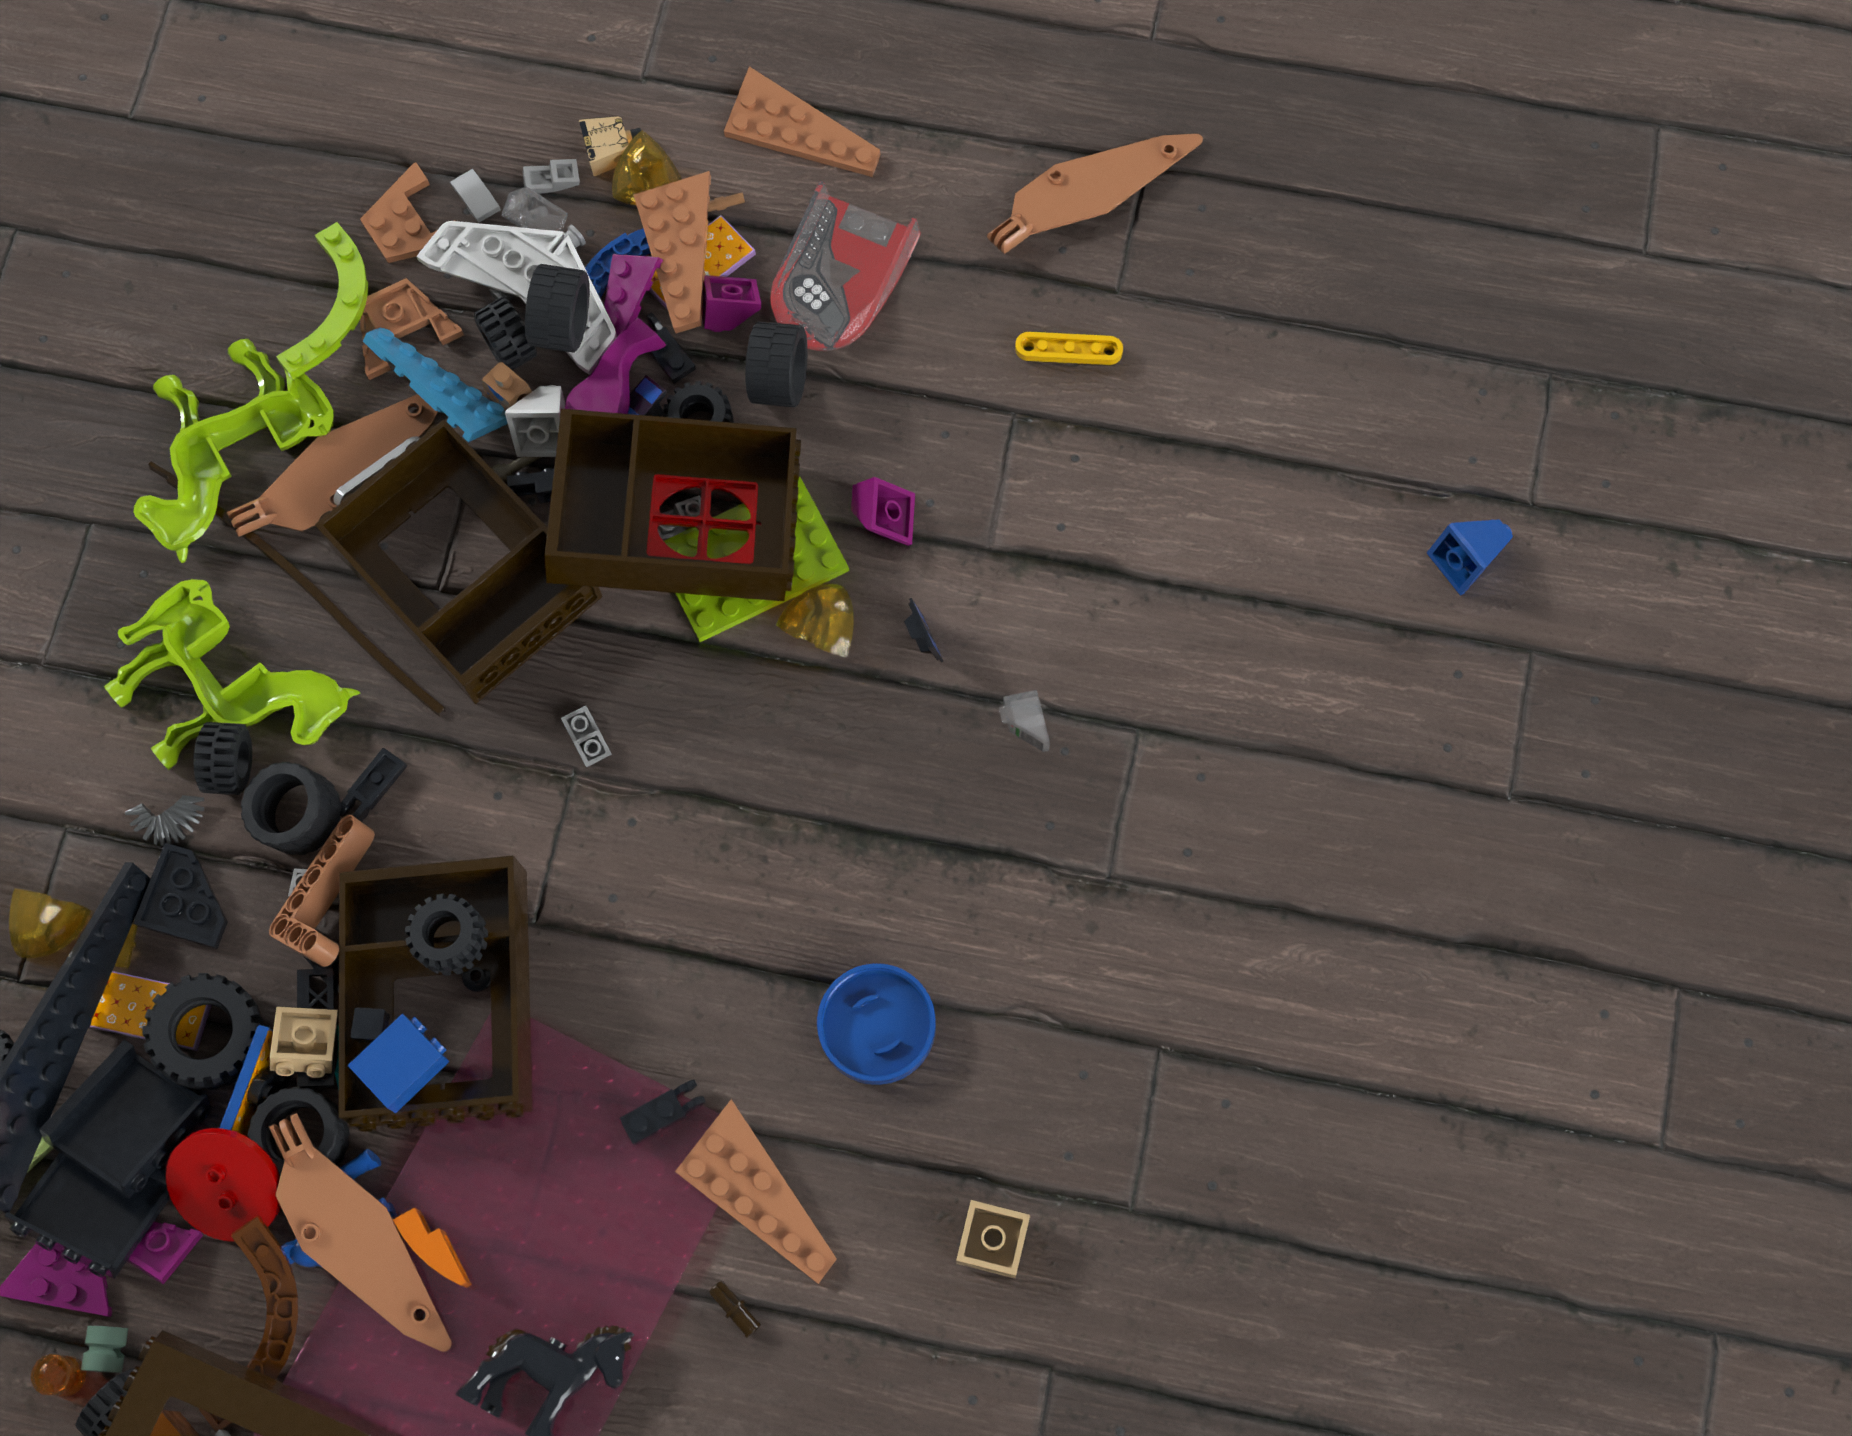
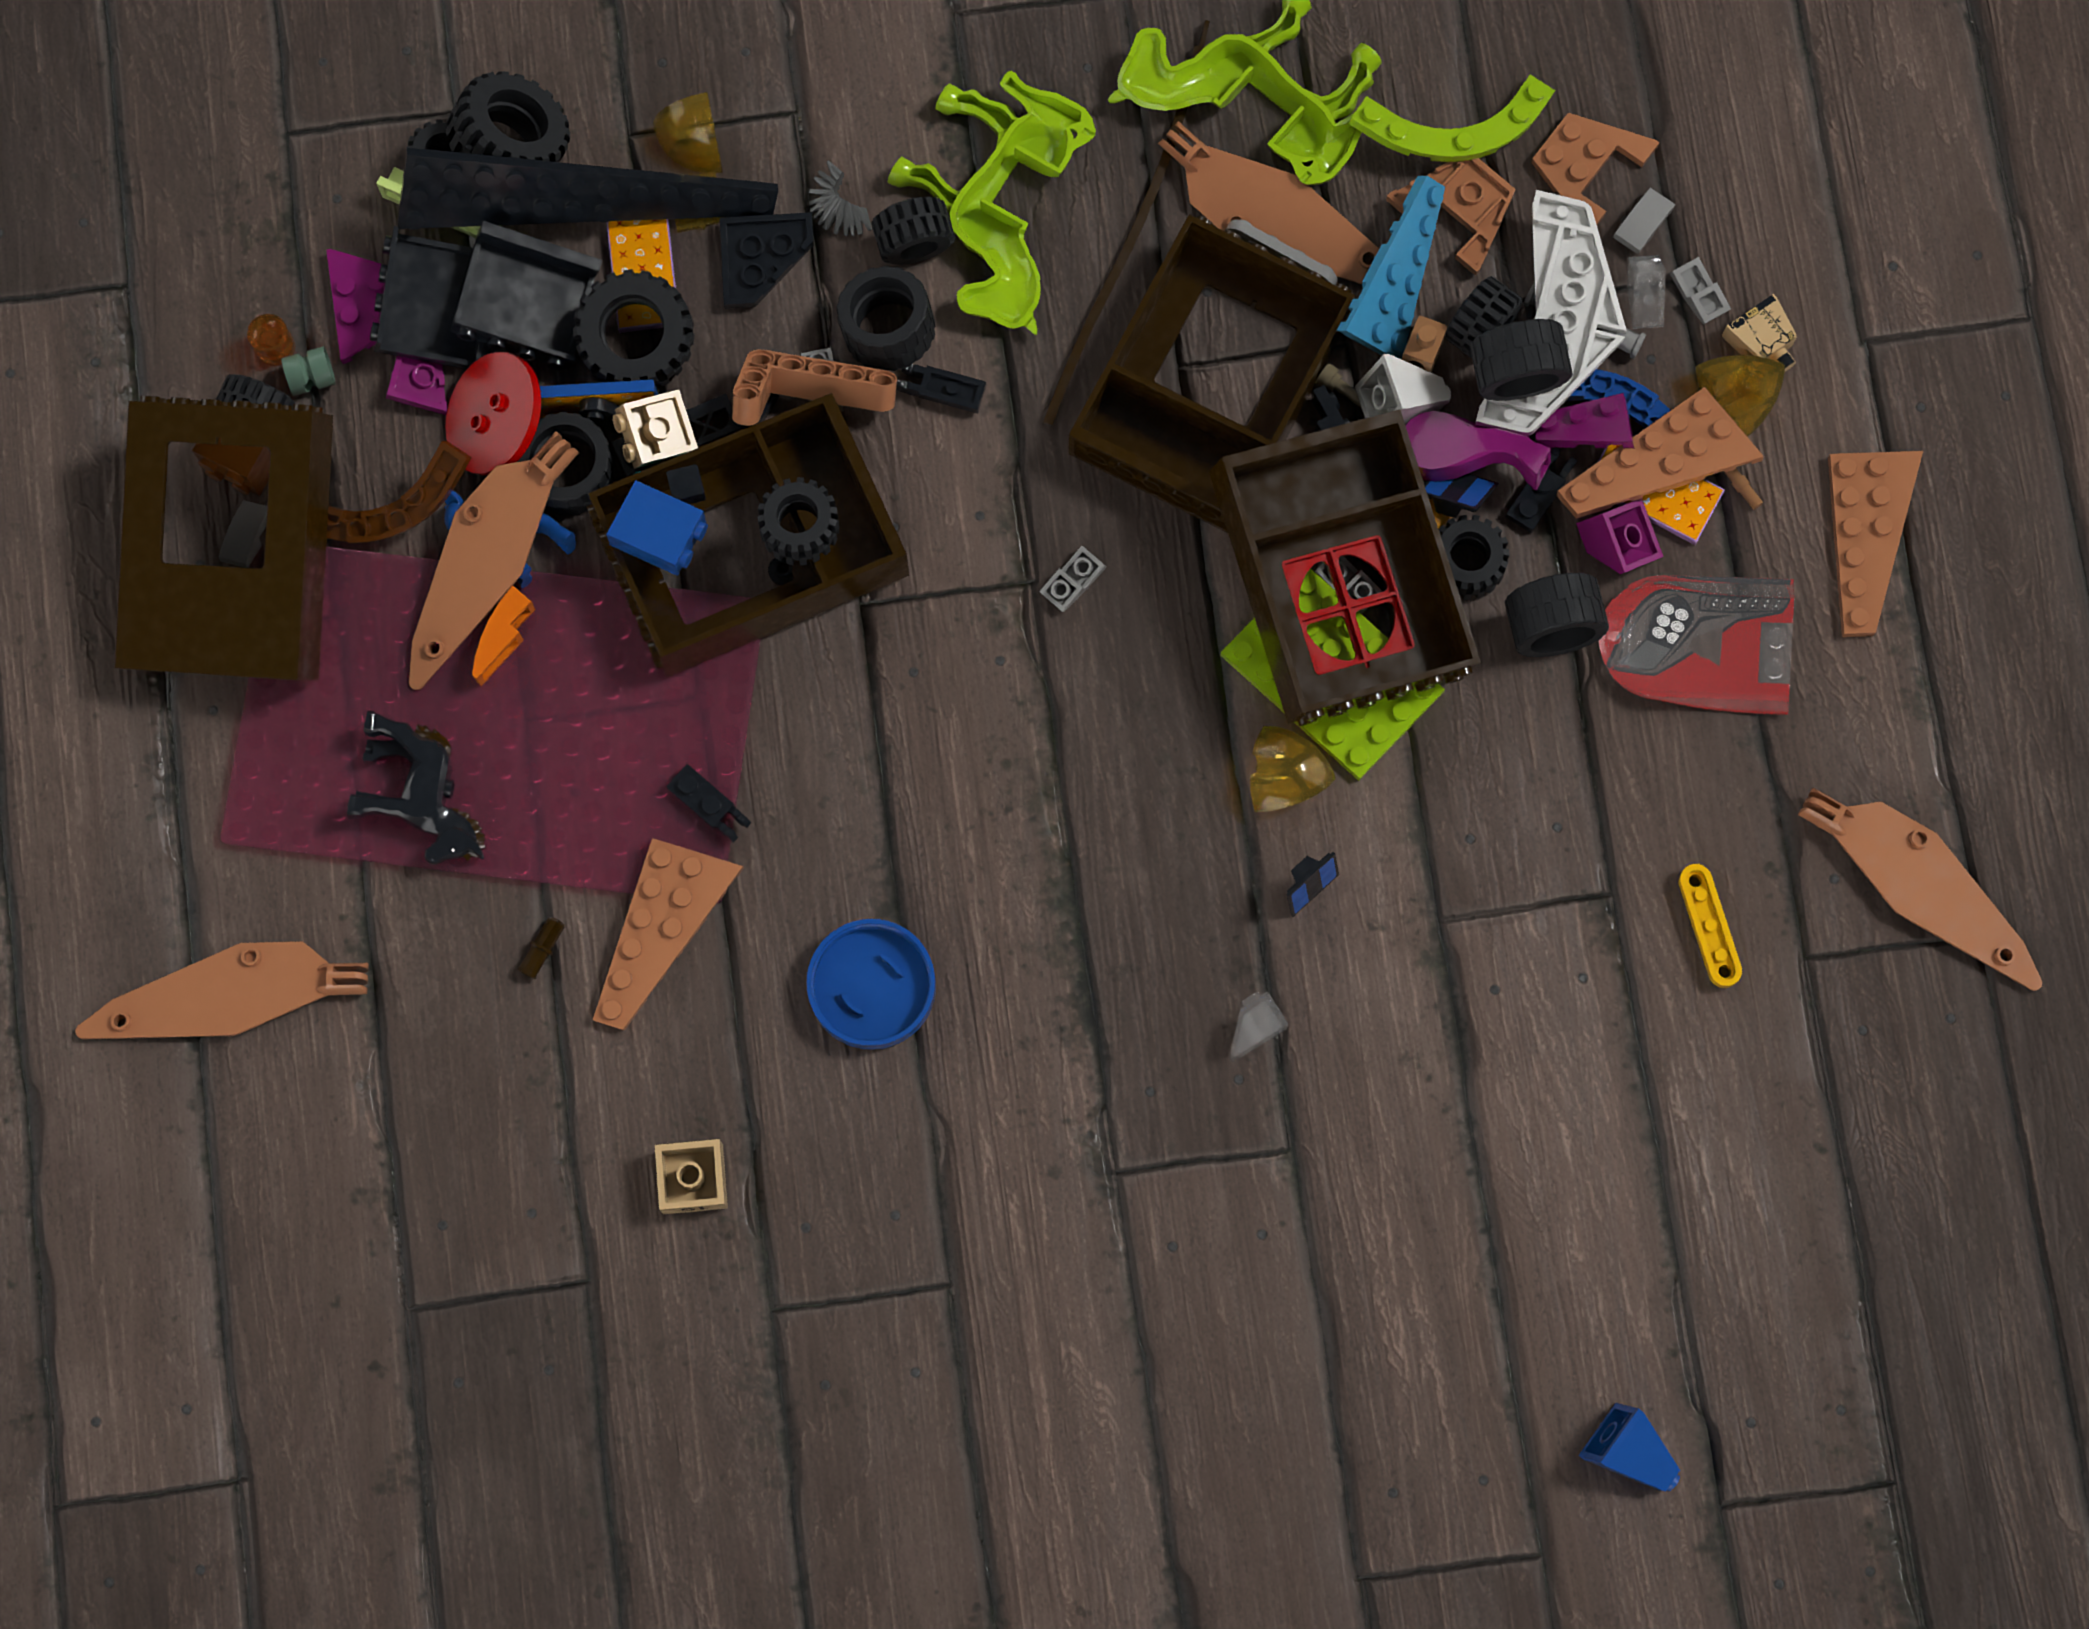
camera: 70 degrees right, 5 degrees up
(884, 509) = (1436, 793): magenta slope -> none

